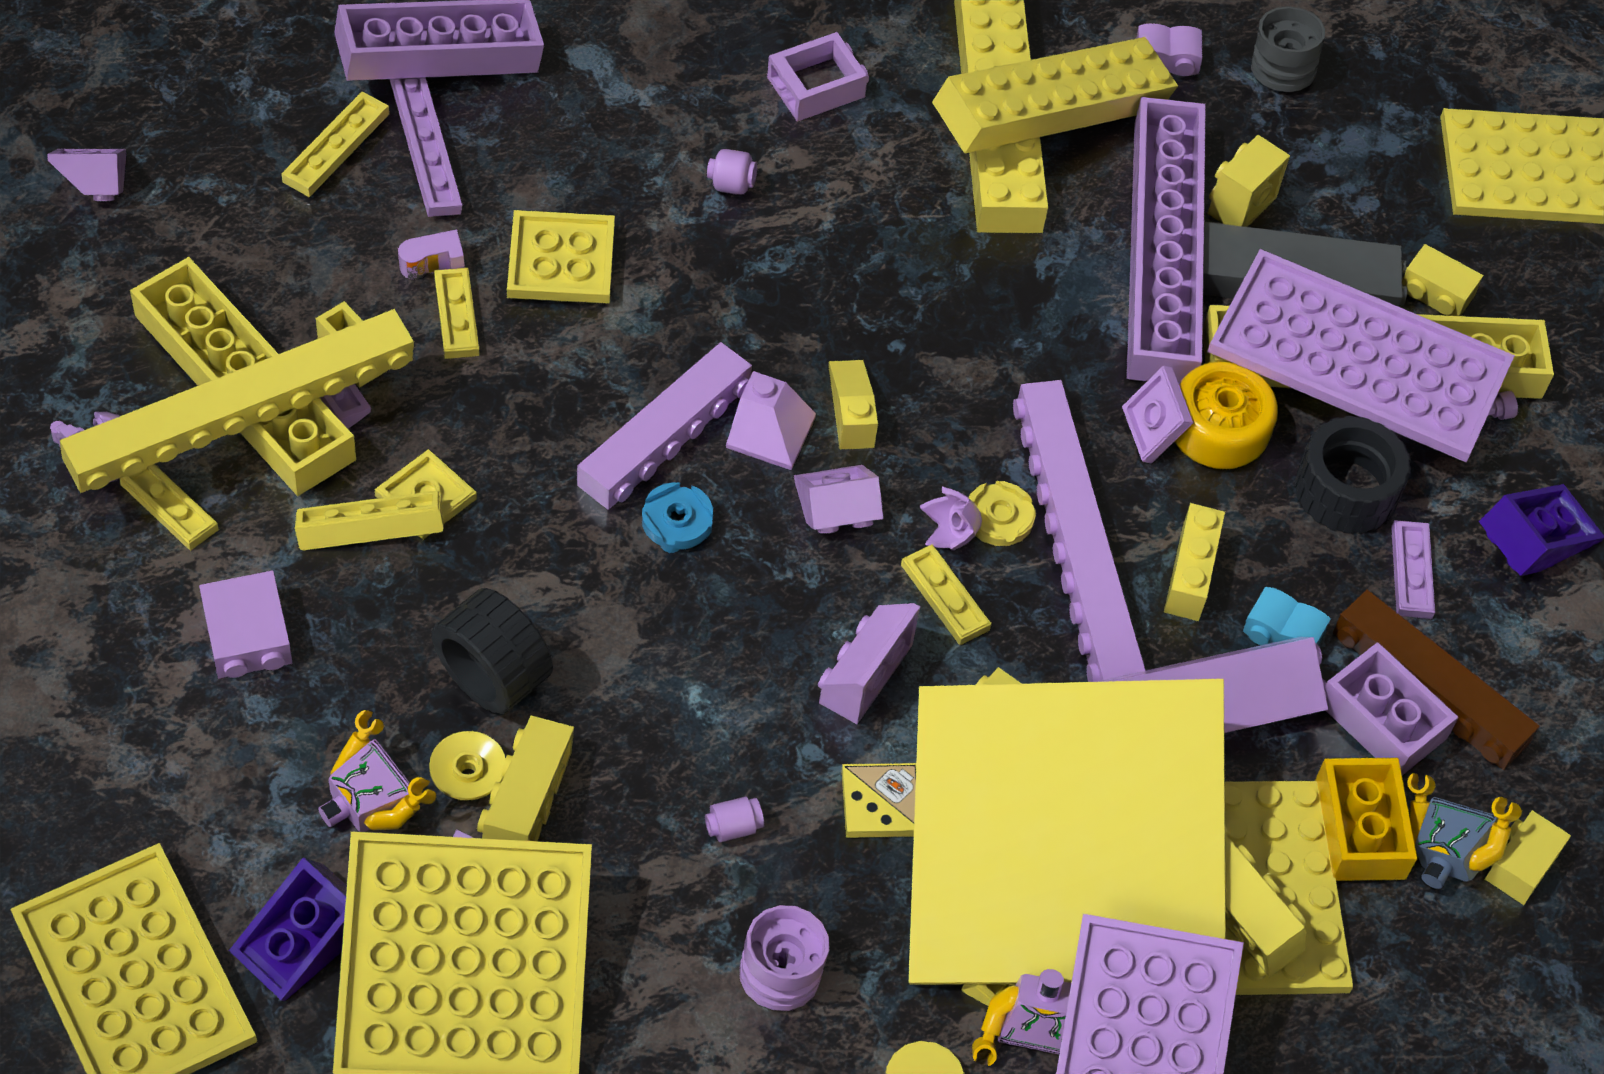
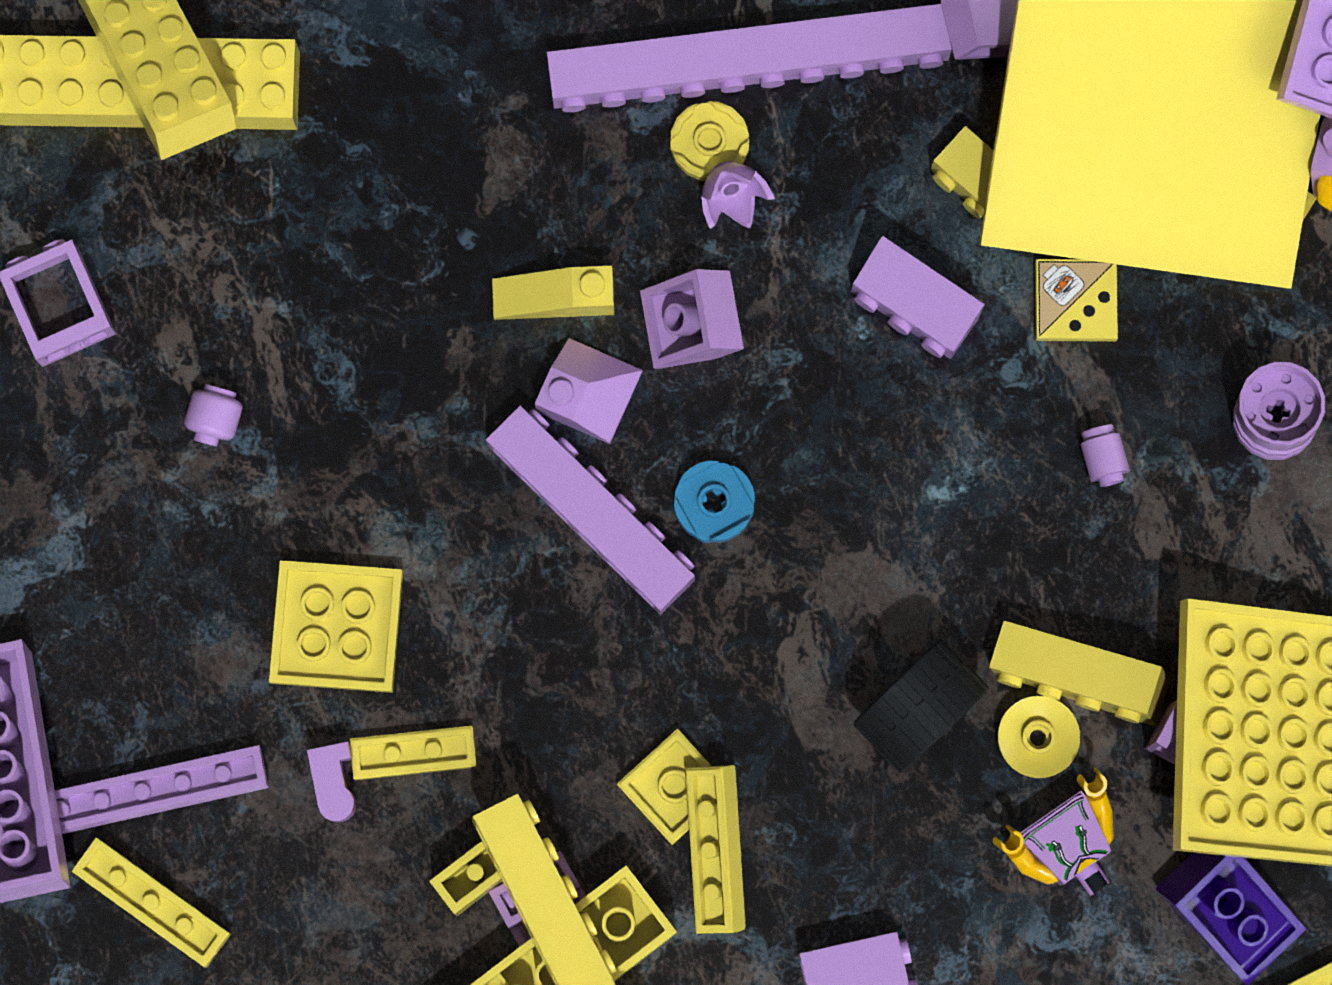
camera: 80 degrees left, 25 degrees up
(946, 594) = (817, 211): light yellow tile -> none

